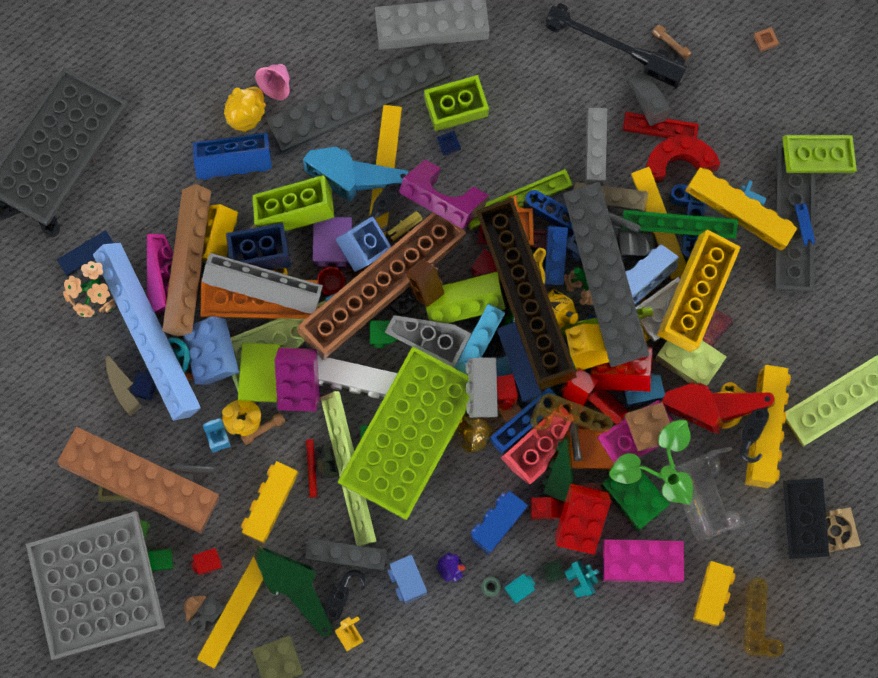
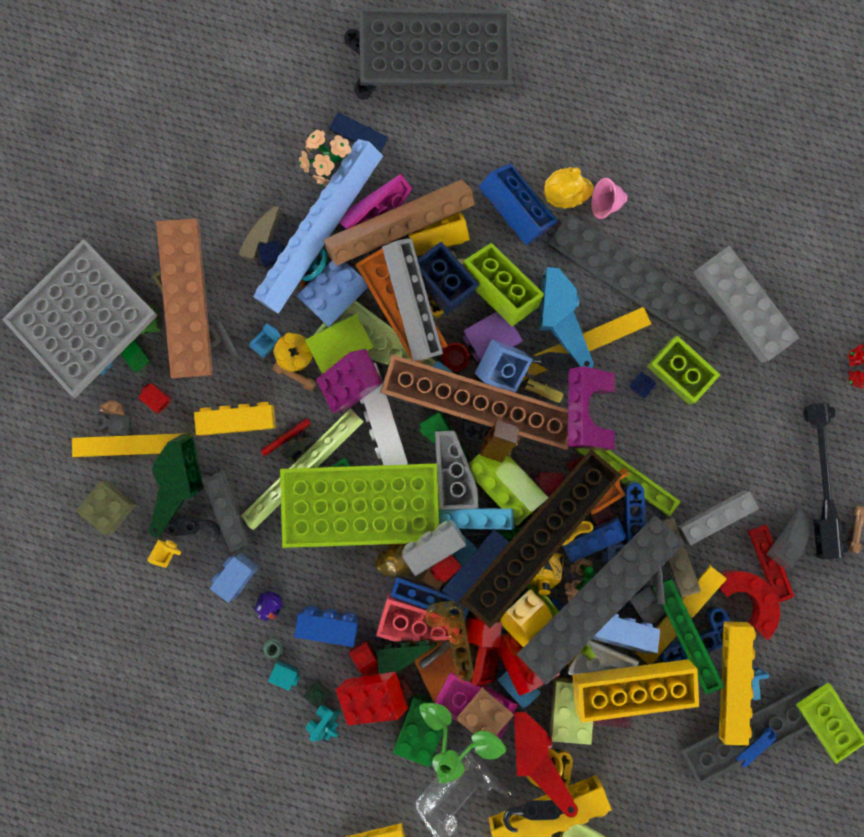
camera: 65 degrees right, 10 degrees up
(643, 561) = (368, 769): dark pink brick -> none

